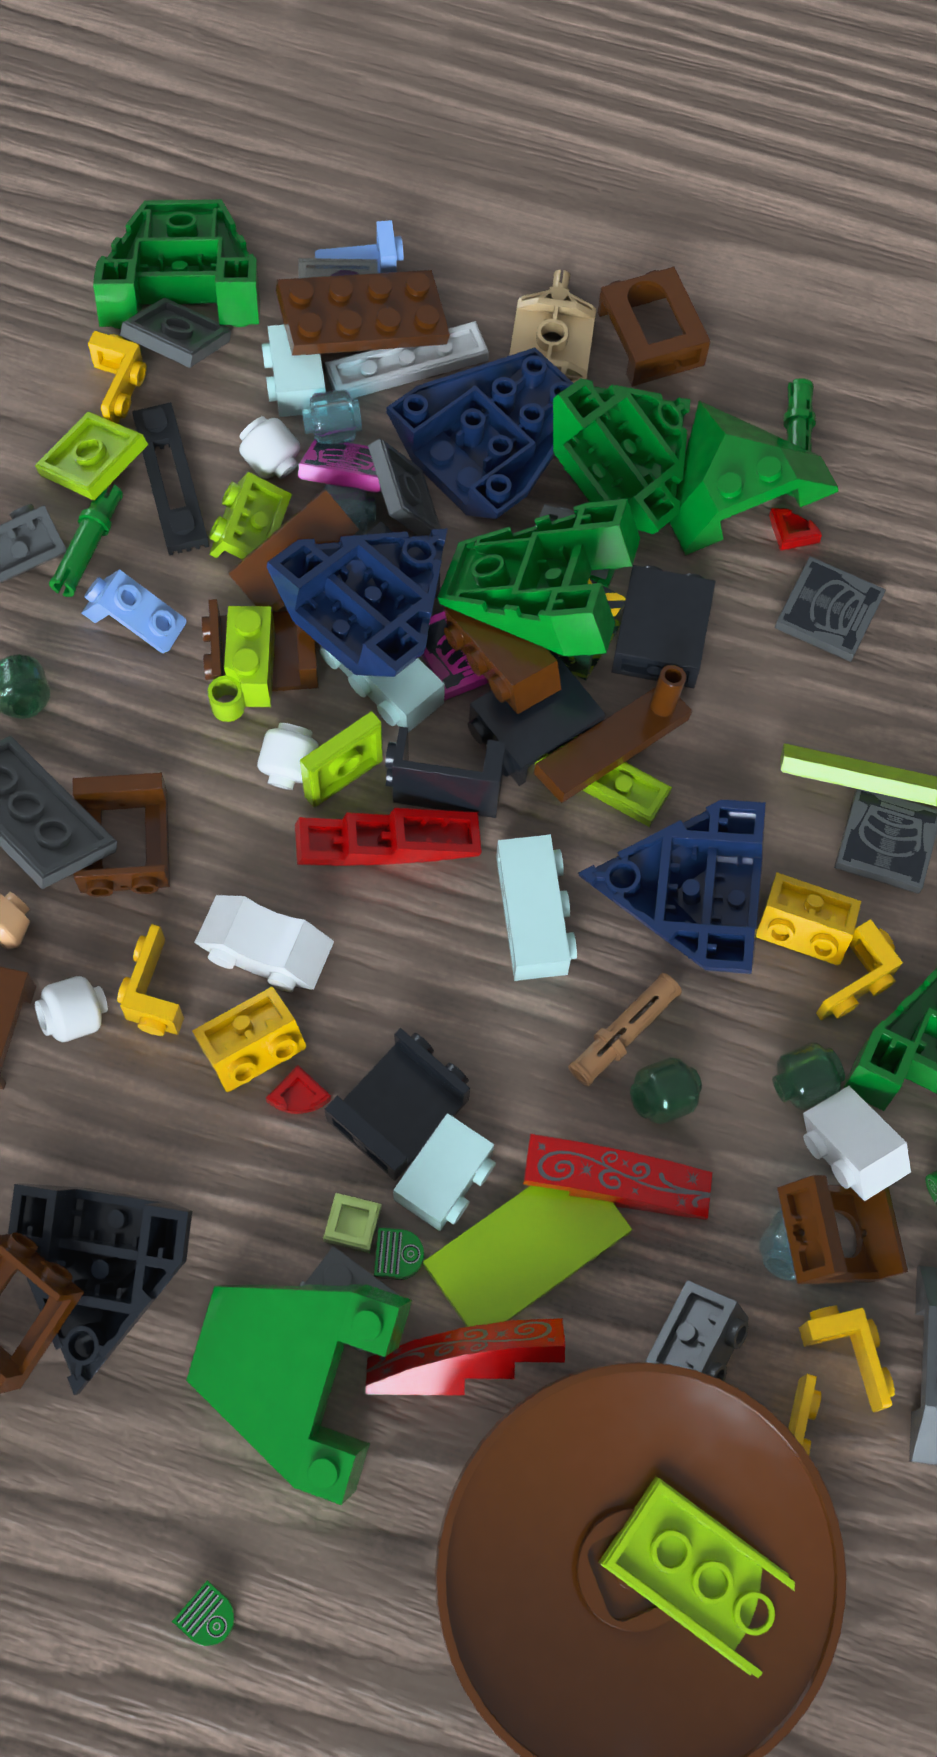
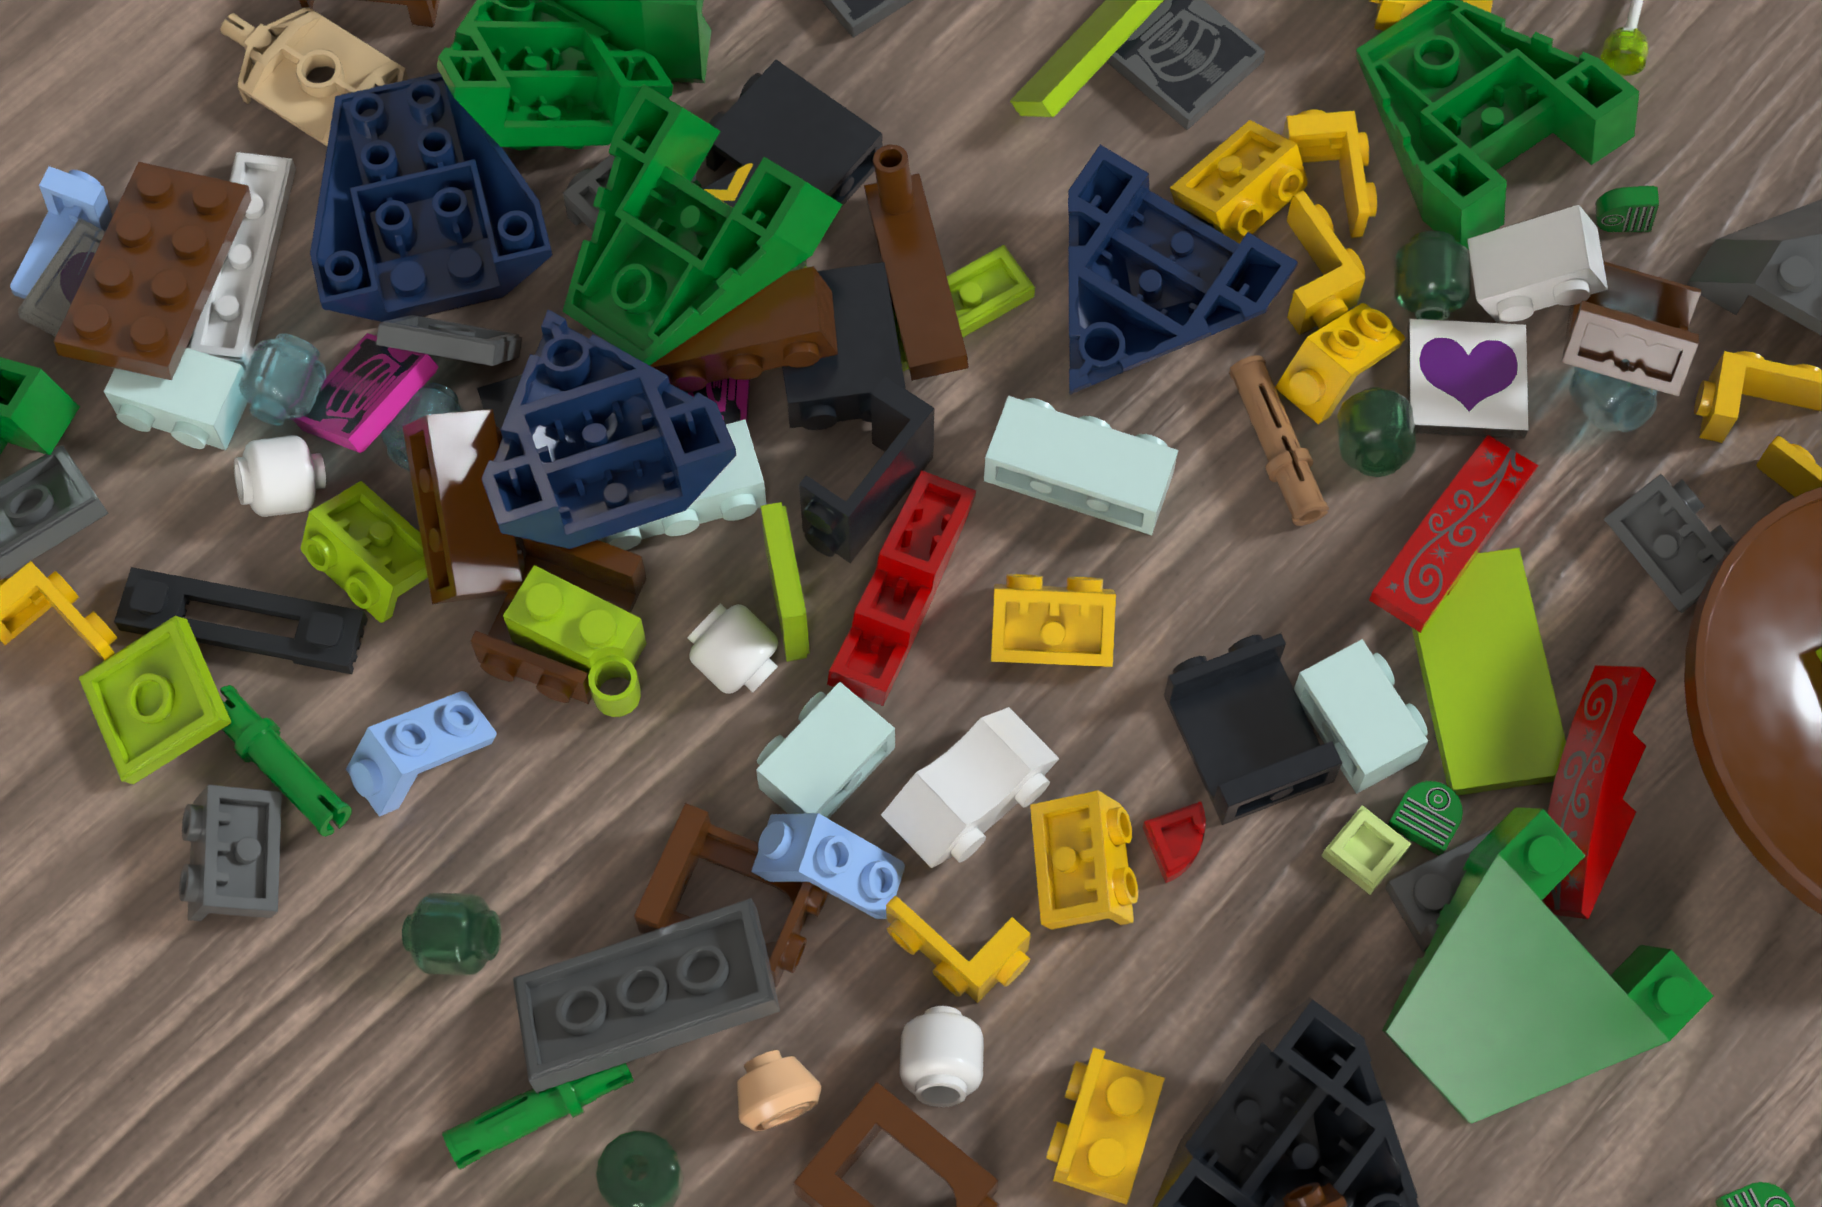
camera: 60 degrees left, 0 degrees up
(72, 1134) = (1107, 1127): none -> yellow bracket
(168, 880) = (831, 857): none -> light blue bracket
(241, 844) = (825, 754): none -> light aqua brick
(410, 941) = (1053, 622): none -> yellow bracket
(714, 1039) = (1335, 357): none -> yellow bracket
(748, 1138) = (1467, 378): none -> tile
(753, 1014) = (1341, 268): none -> yellow bracket

